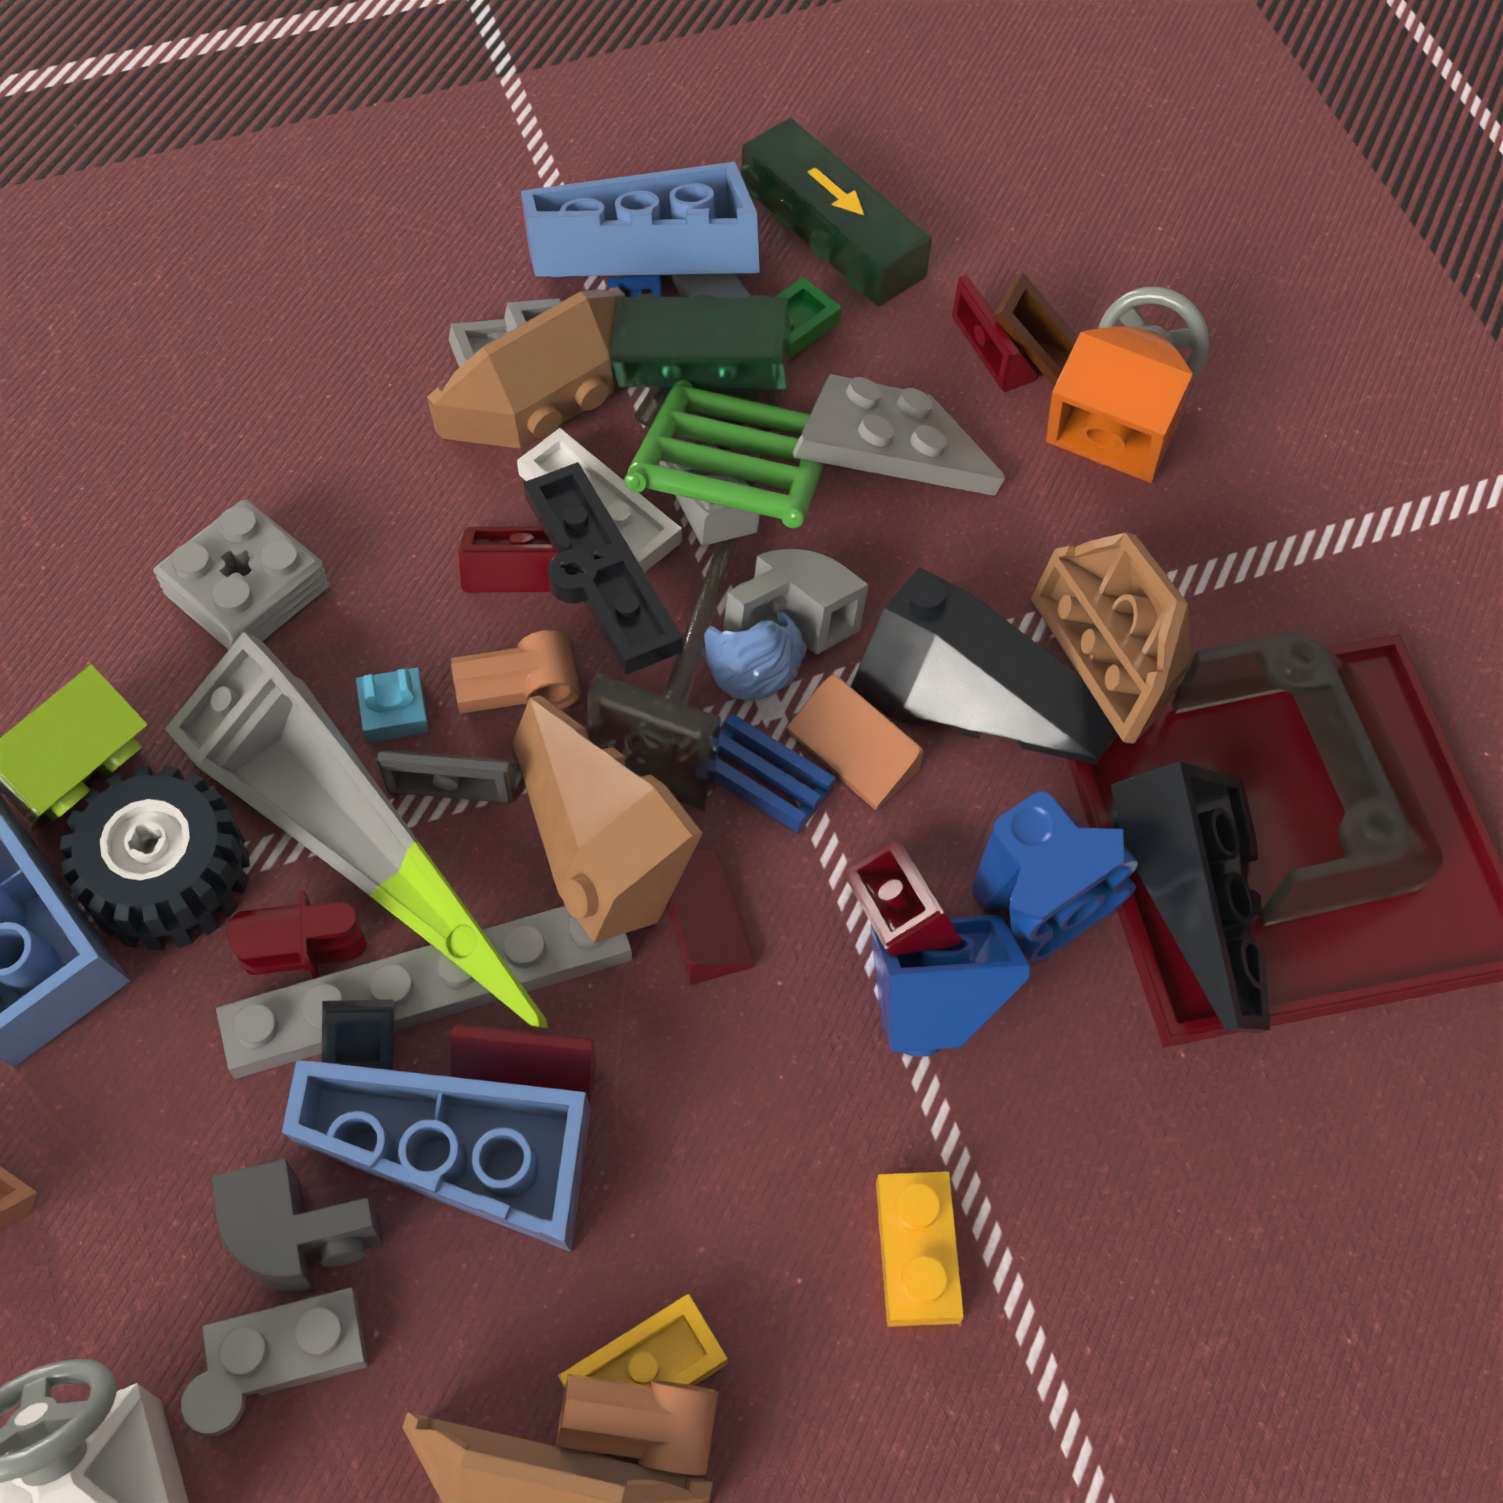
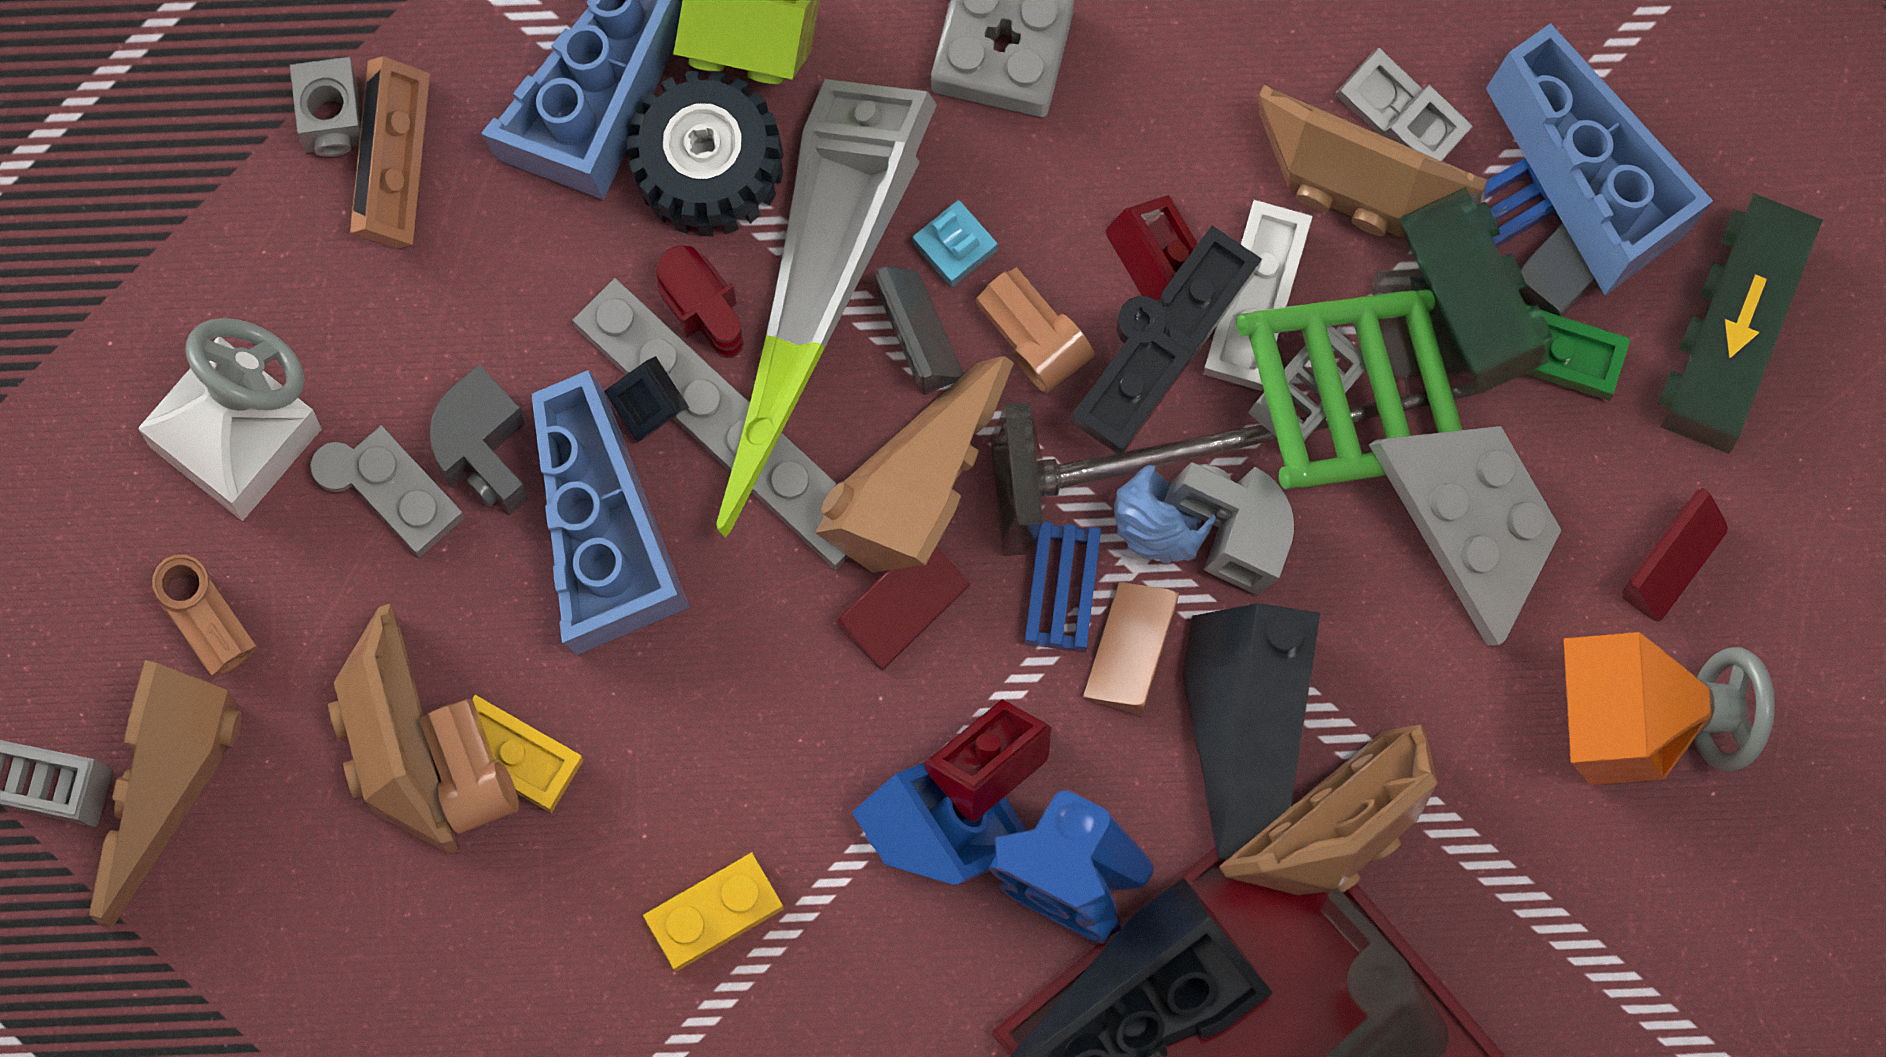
camera: 65 degrees right, 15 degrees up
(523, 1058) = (691, 538): dark red slope -> none
(1036, 327) = (1686, 597): reddish brown slope -> none

